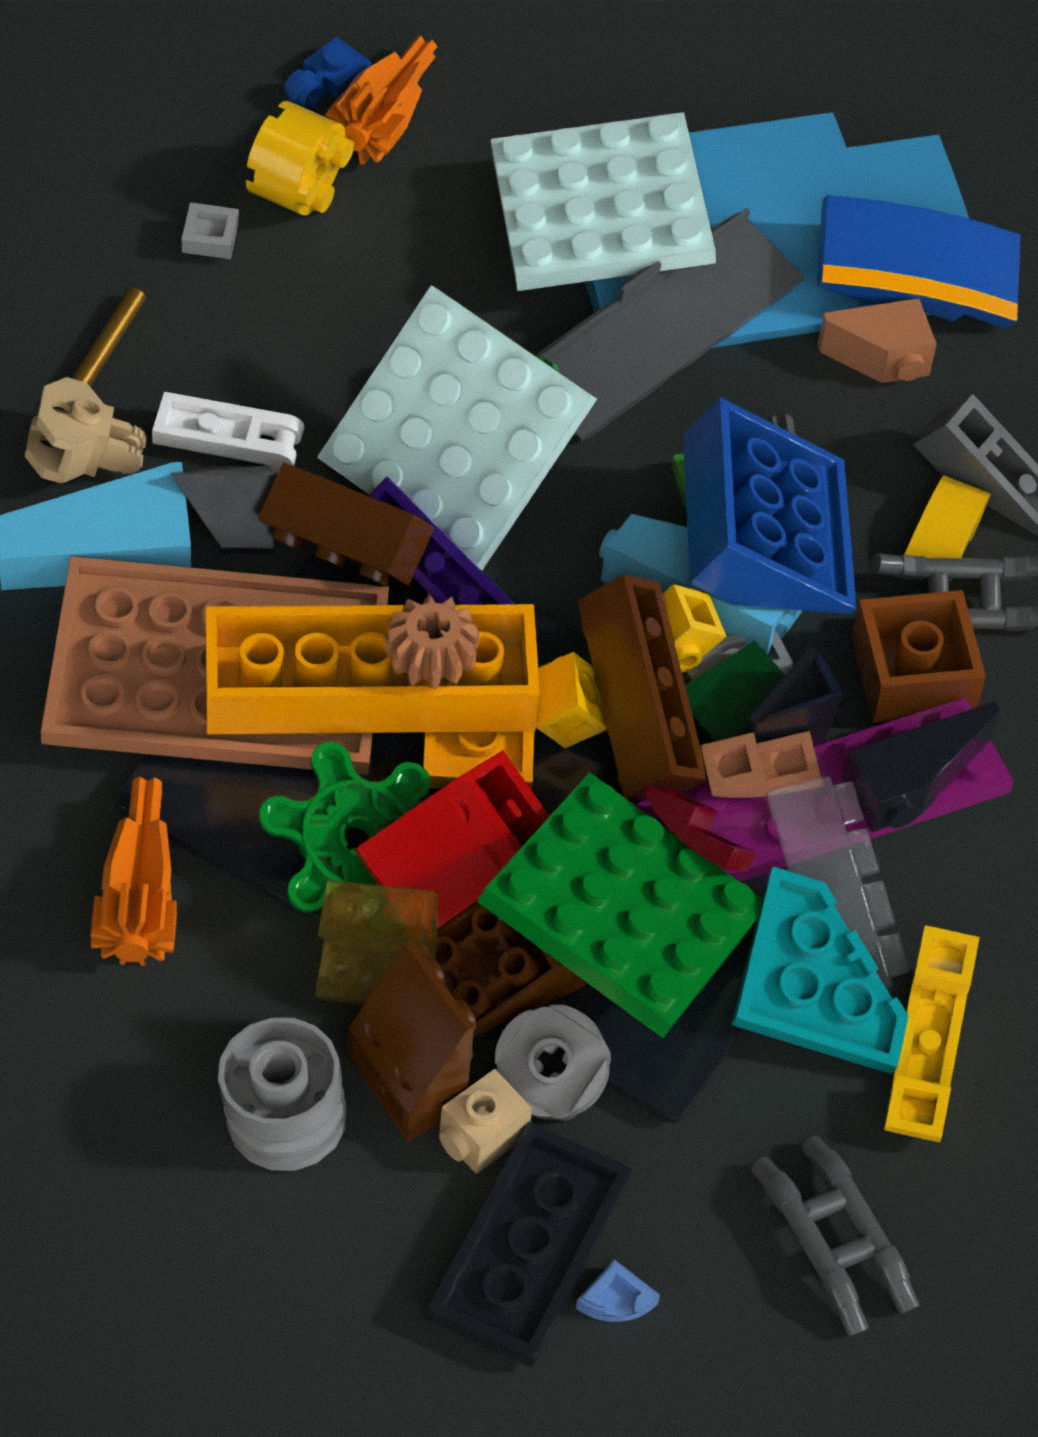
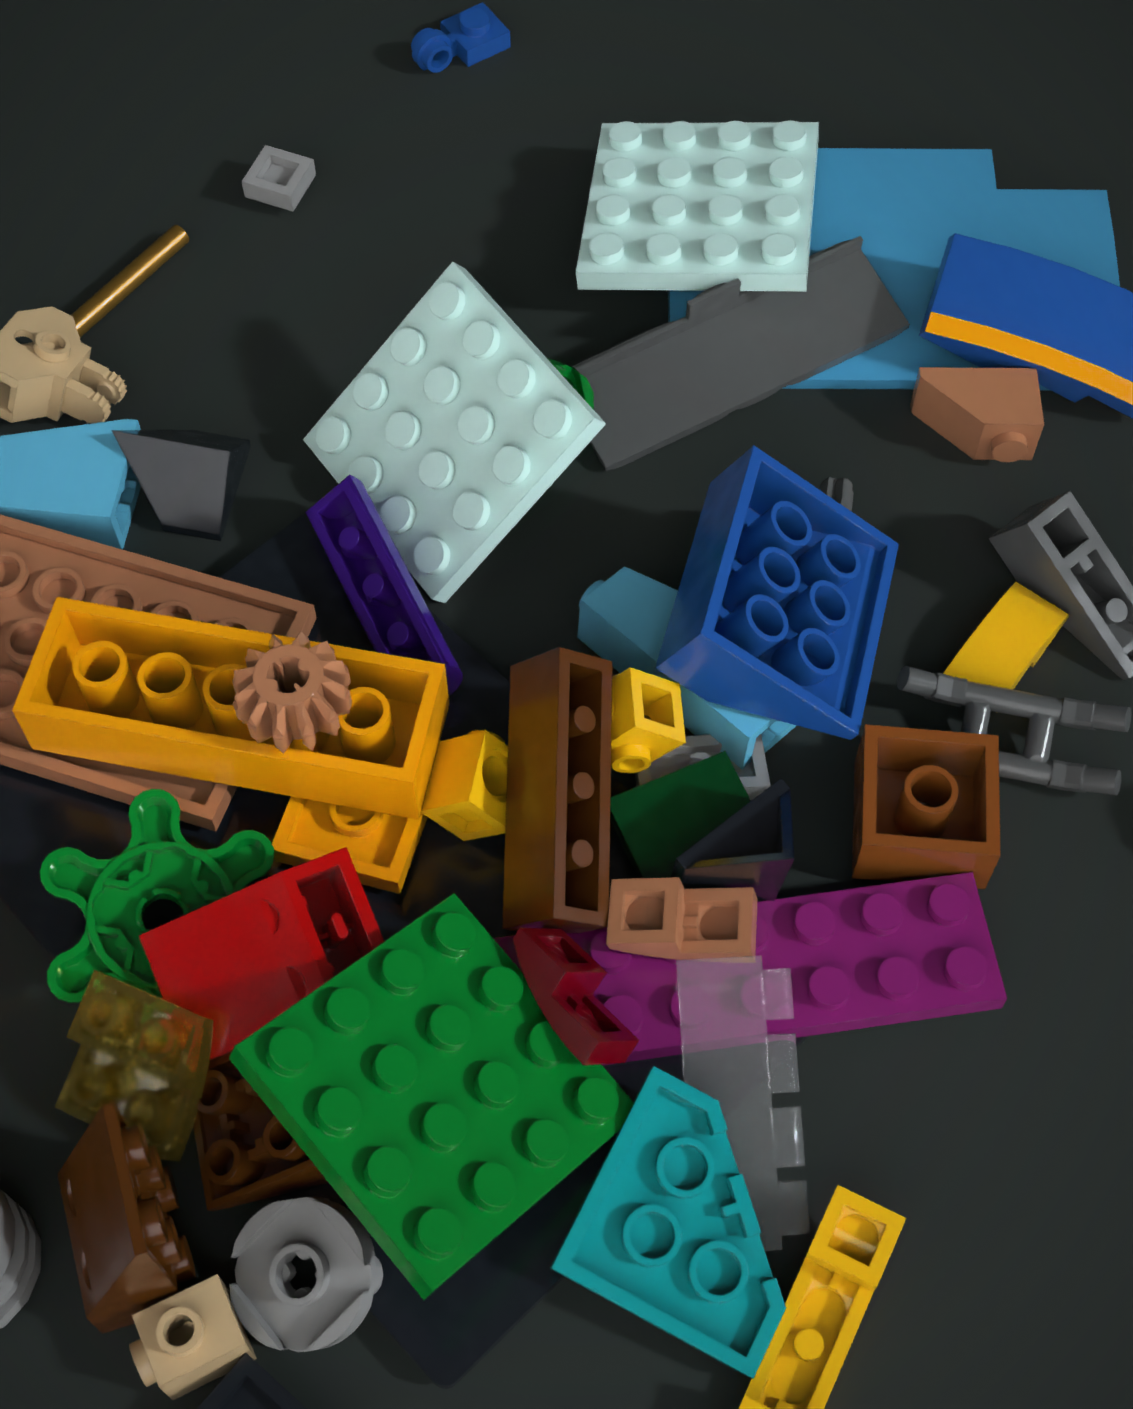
camera: 20 degrees right, 5 degrees up
(227, 430) = (216, 394): white plate -> none
(298, 159) = (387, 114): yellow brick -> none
(345, 526) = (285, 526): reddish brown brick -> none
(383, 100) = (502, 71): orange piece -> none
(909, 770) = (866, 968): black slope -> none

